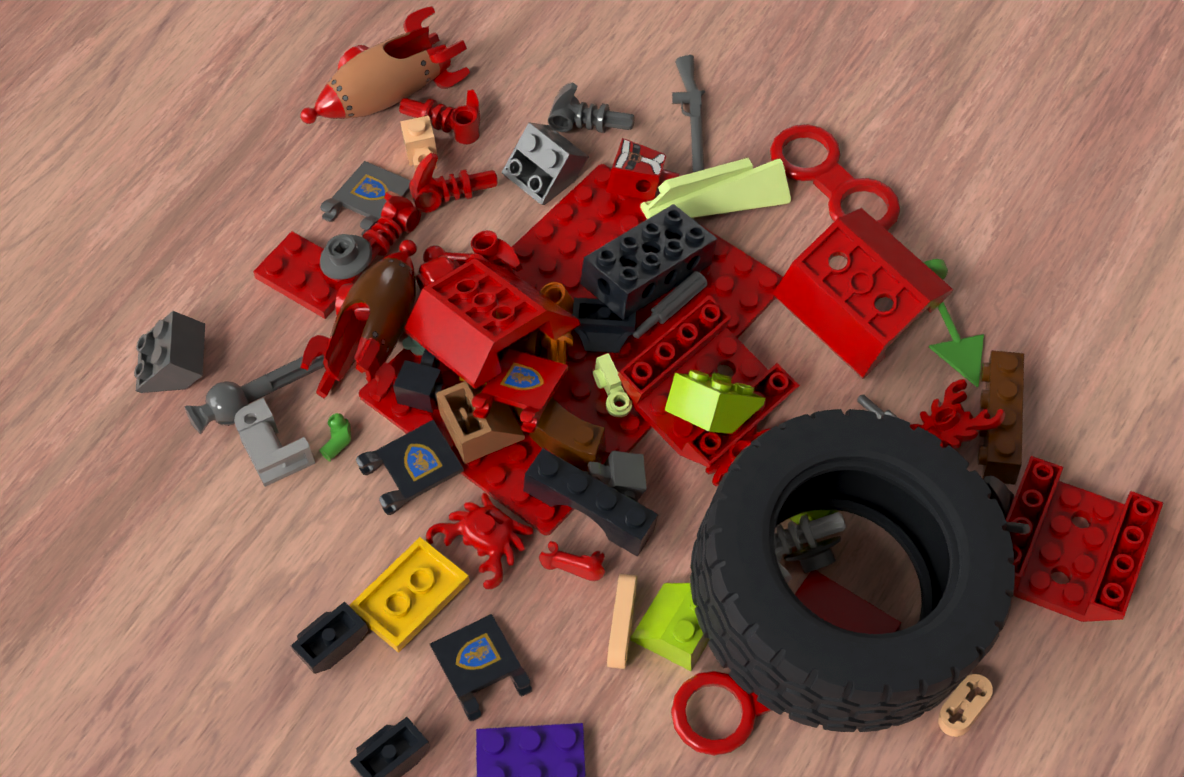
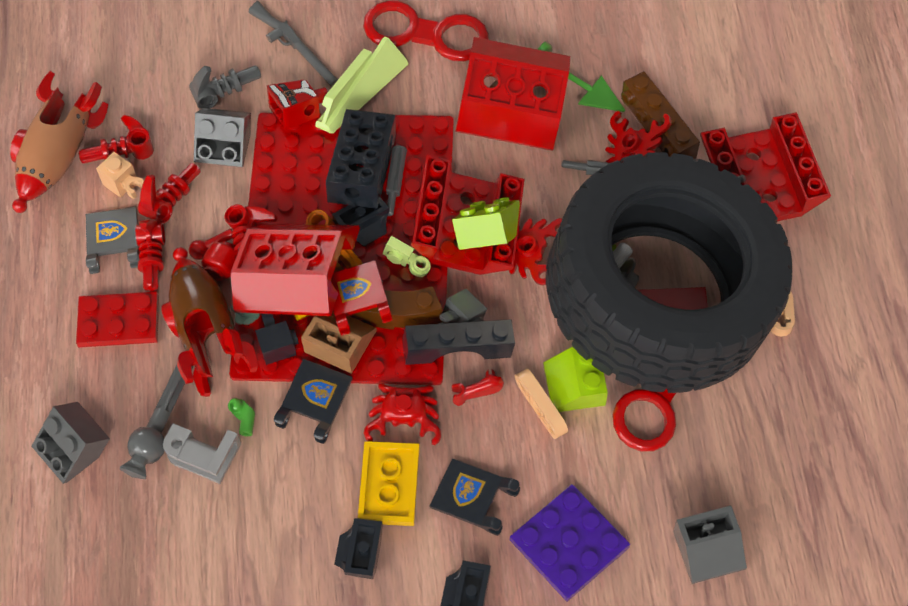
camera: 40 degrees left, 5 degrees up
(348, 264) = (146, 295): dark grey piece -> none

